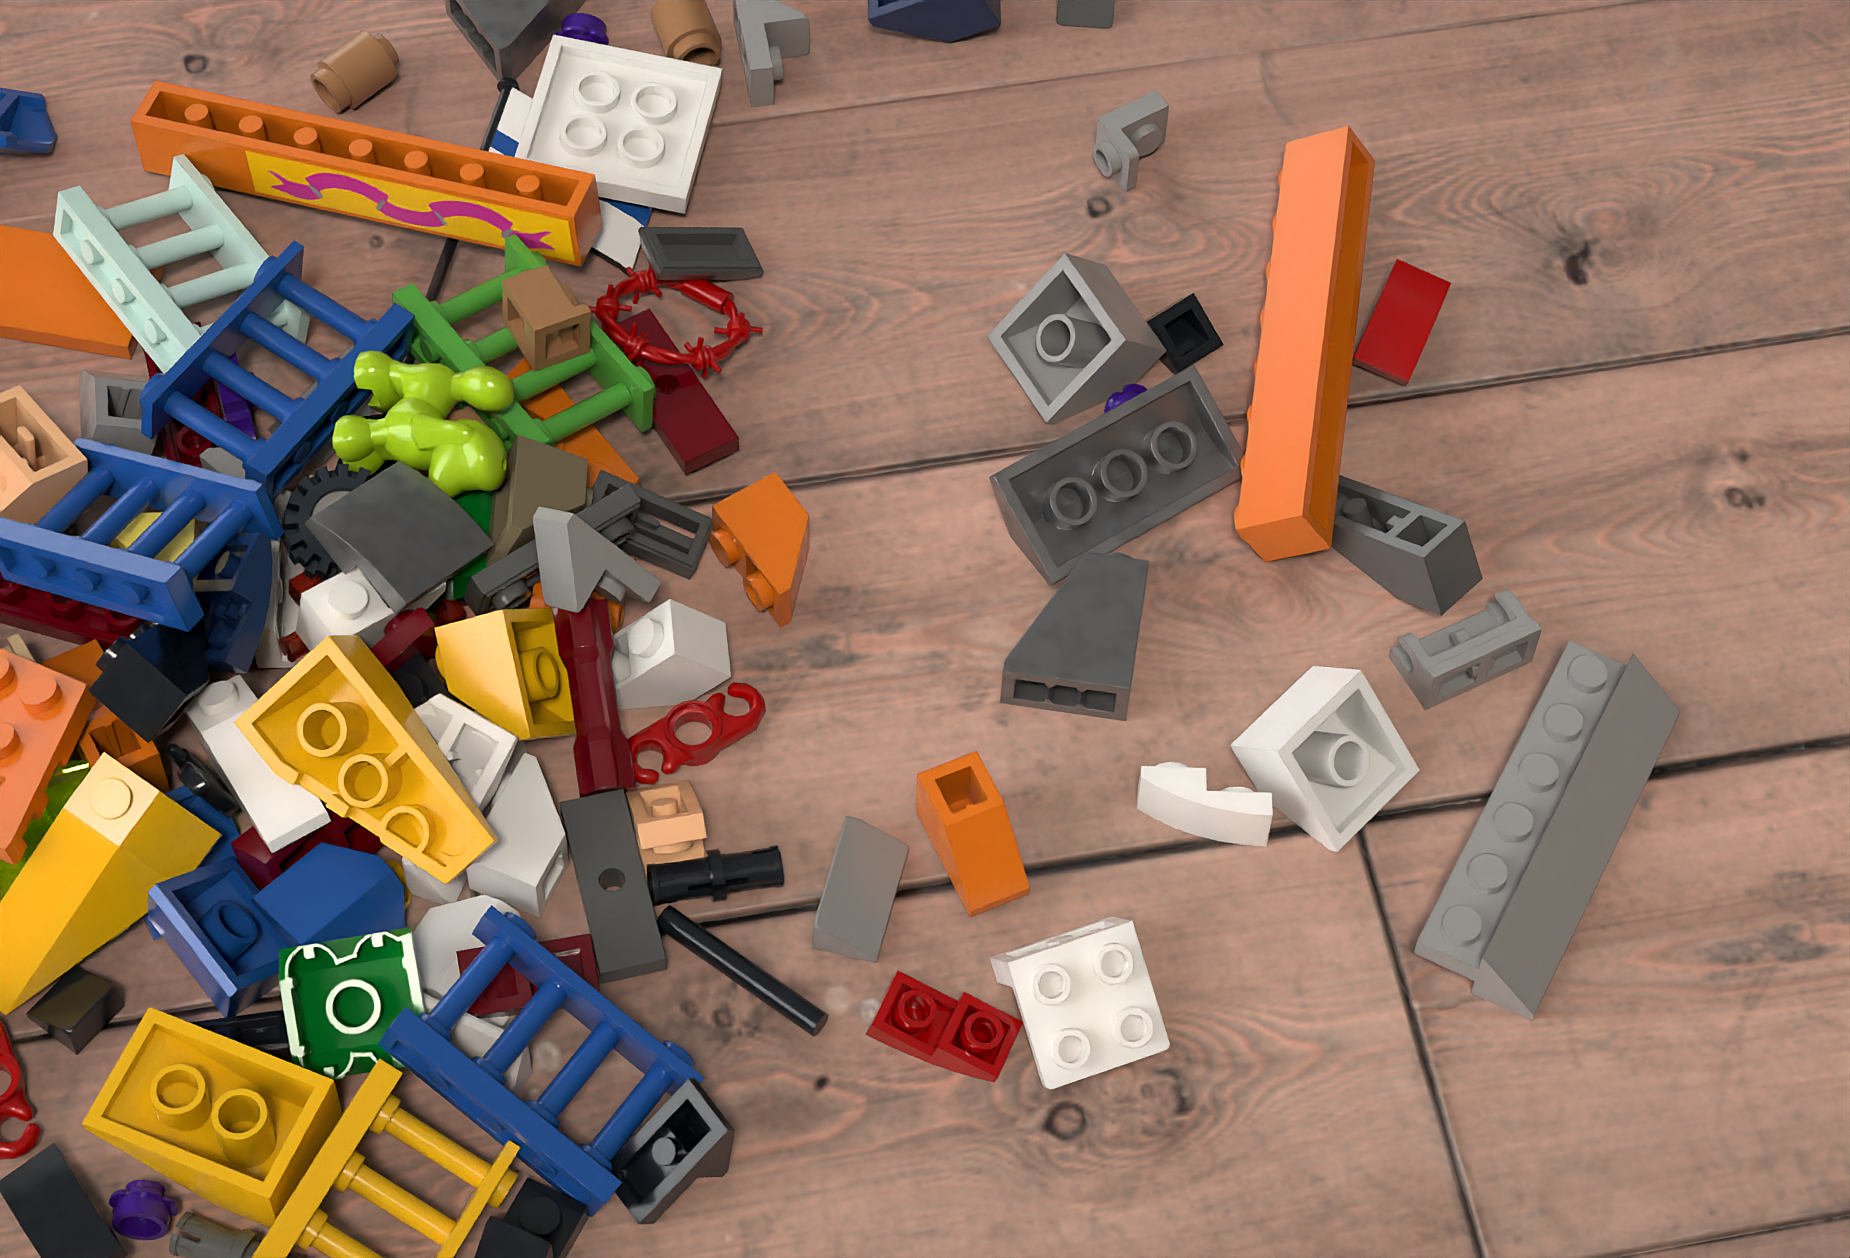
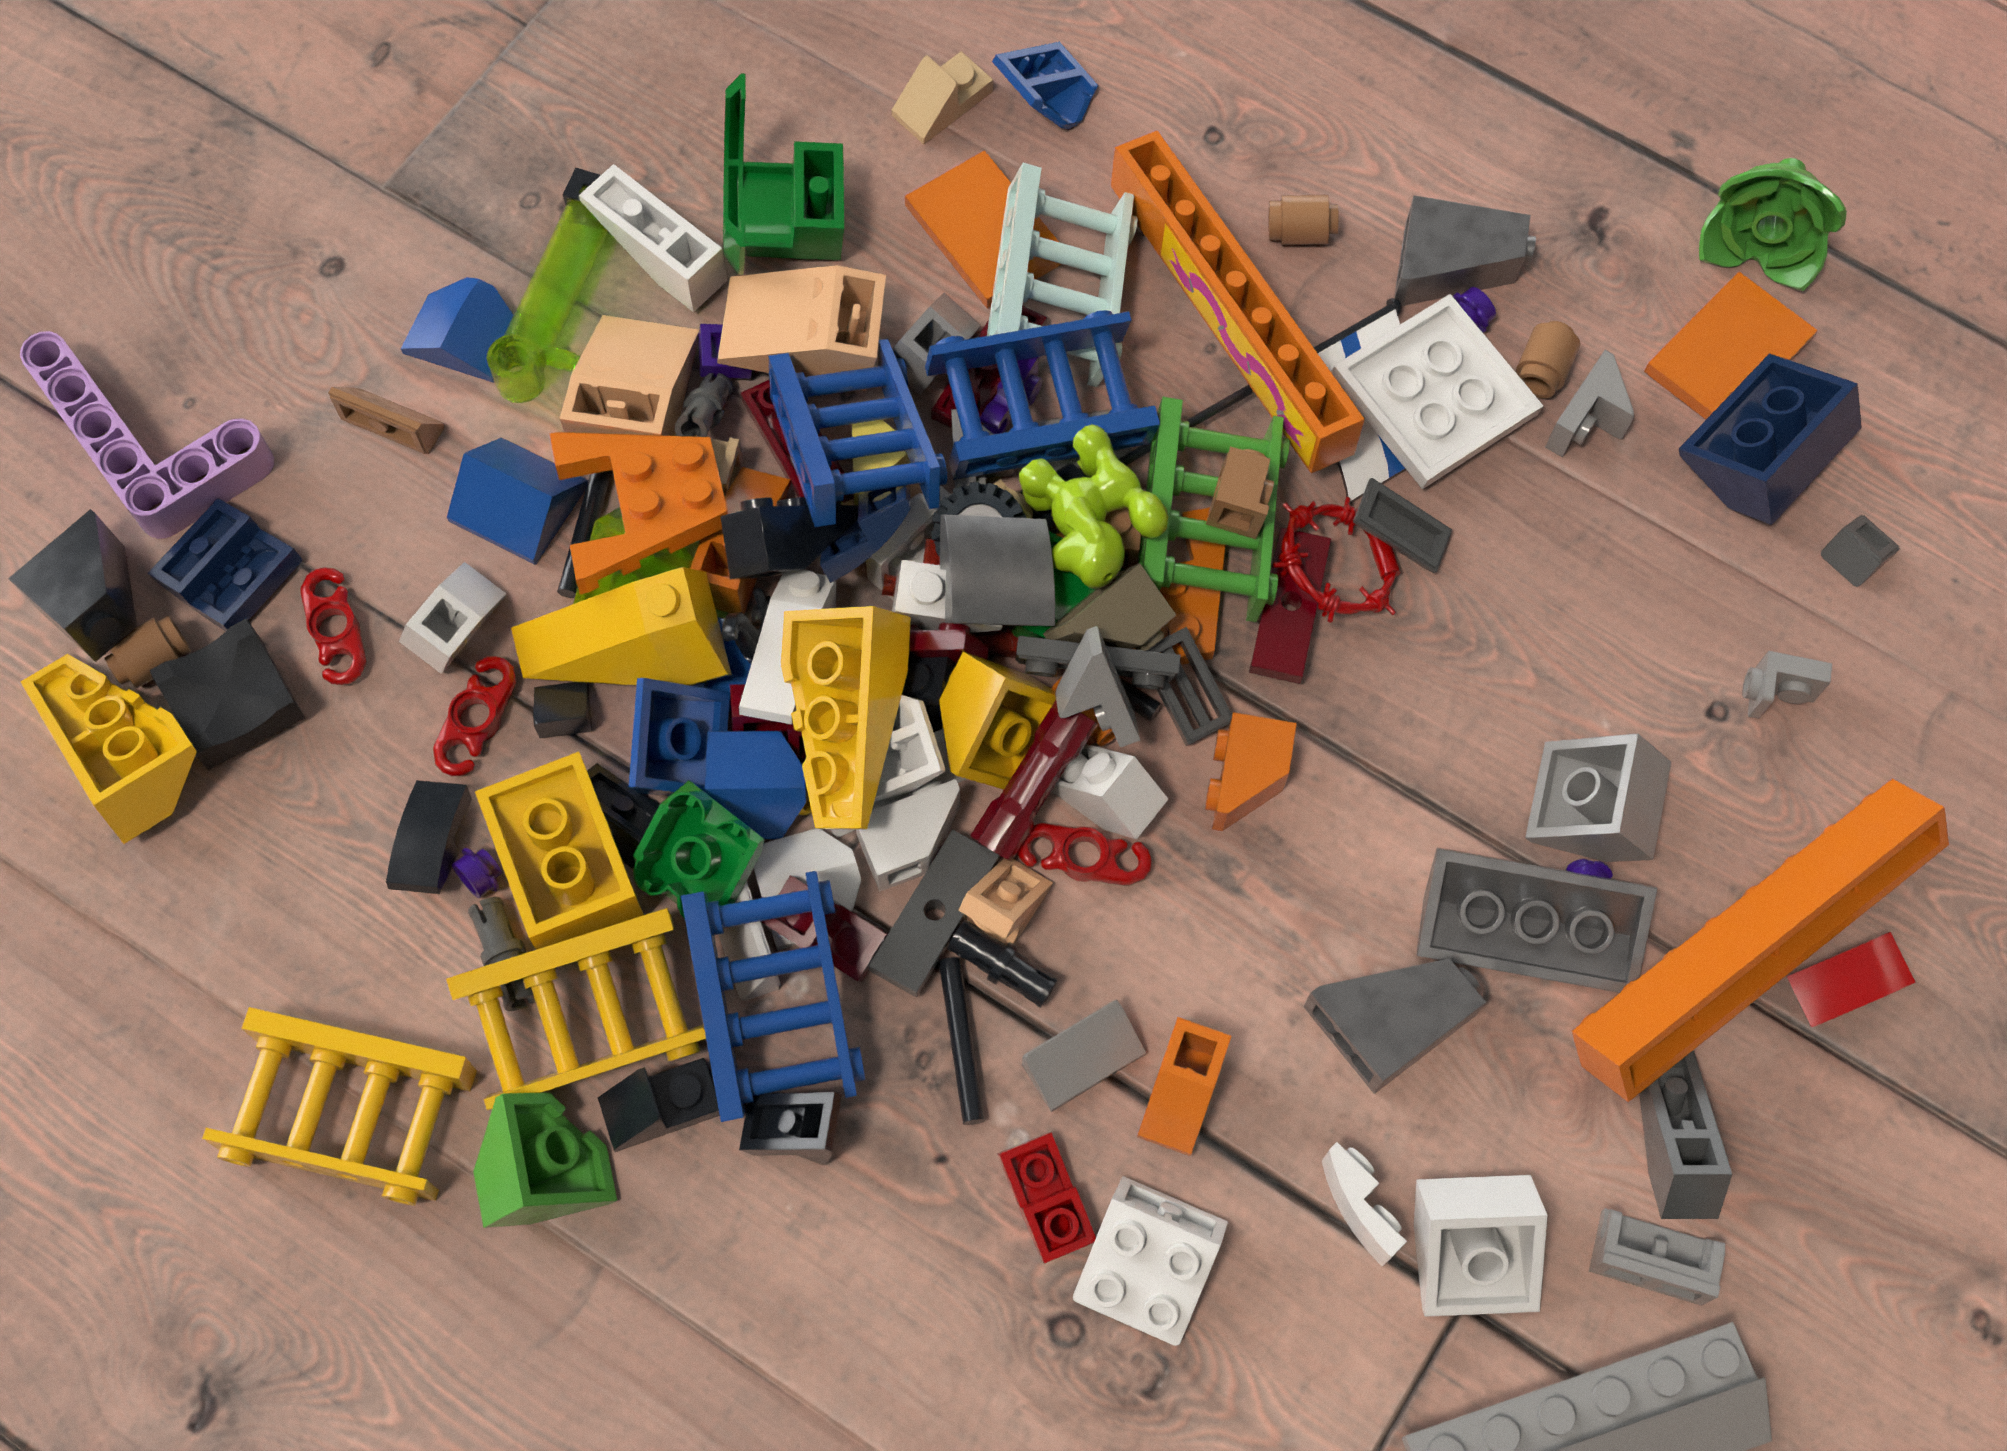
camera: 45 degrees right, 10 degrees up
(1184, 333) = (1683, 853): black slope -> none

